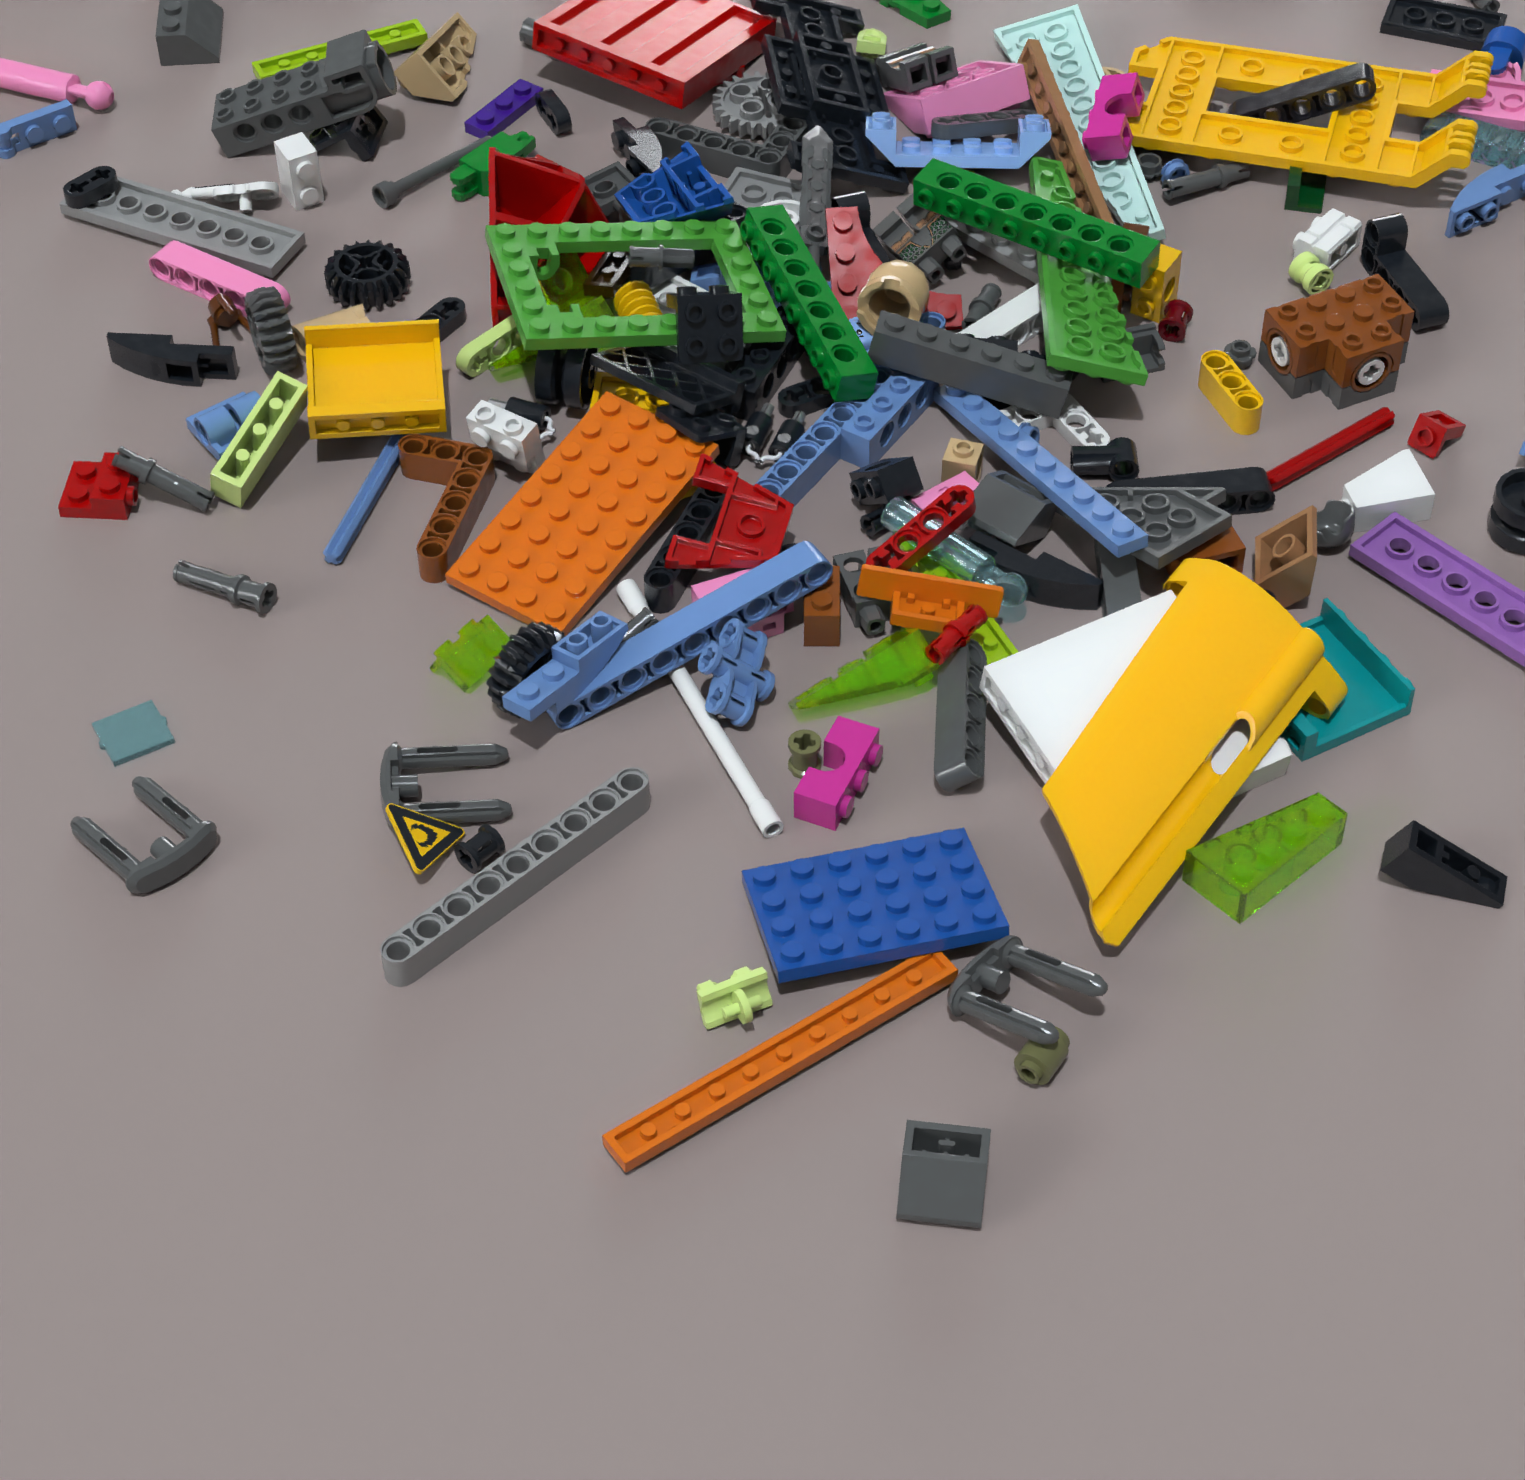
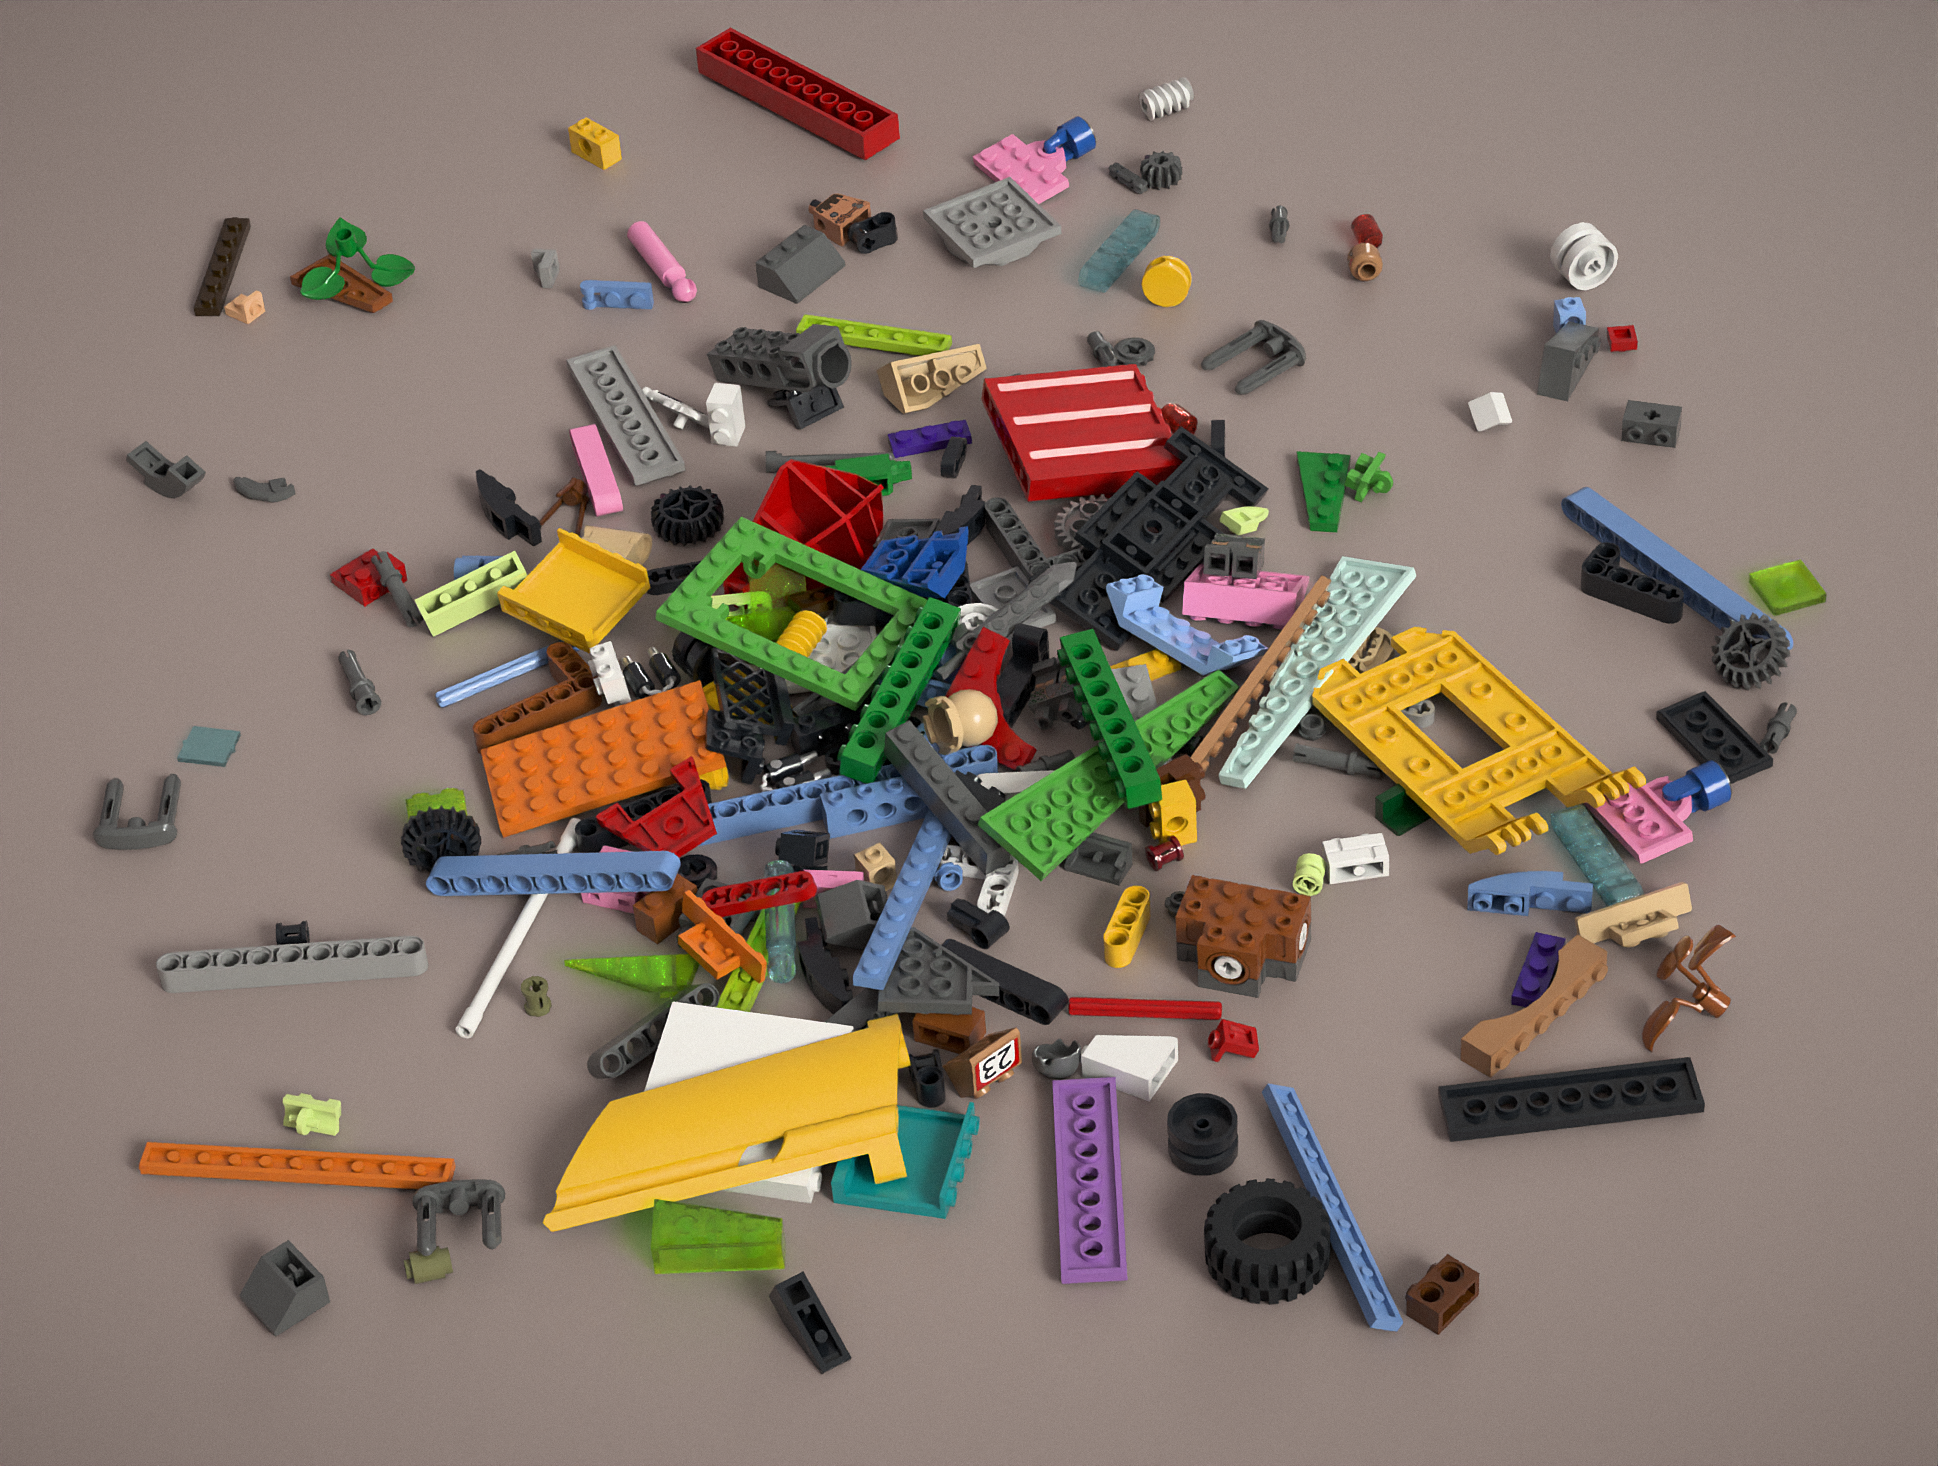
camera: 45 degrees right, 5 degrees down
(90, 187) = (592, 357): black beam -> none
(271, 330) = (570, 510): dark grey gear -> none
(398, 786) = (299, 865): dark grey piece -> none
(422, 836) = (269, 906): black piece -> none
(573, 667) = (460, 851): medium blue slope -> none
(661, 257) = (824, 601): dark grey axle -> none
(708, 324) = (799, 666): black bracket -> none
(736, 672) = (545, 923): medium blue axle -> none
(829, 795) = (520, 1031): dark pink arch -> none
(873, 904) = (454, 1113): blue plate -> none
(956, 634) = (699, 973): red pin -> none
(978, 124) = (1222, 624): dark grey beam -> none
(1108, 128) = (1325, 658): dark pink arch -> none
(1174, 169) = (1323, 740): medium blue plate -> none
(1313, 90) = (1478, 736): black beam -> none
(1385, 255) = (1370, 913): black beam -> none

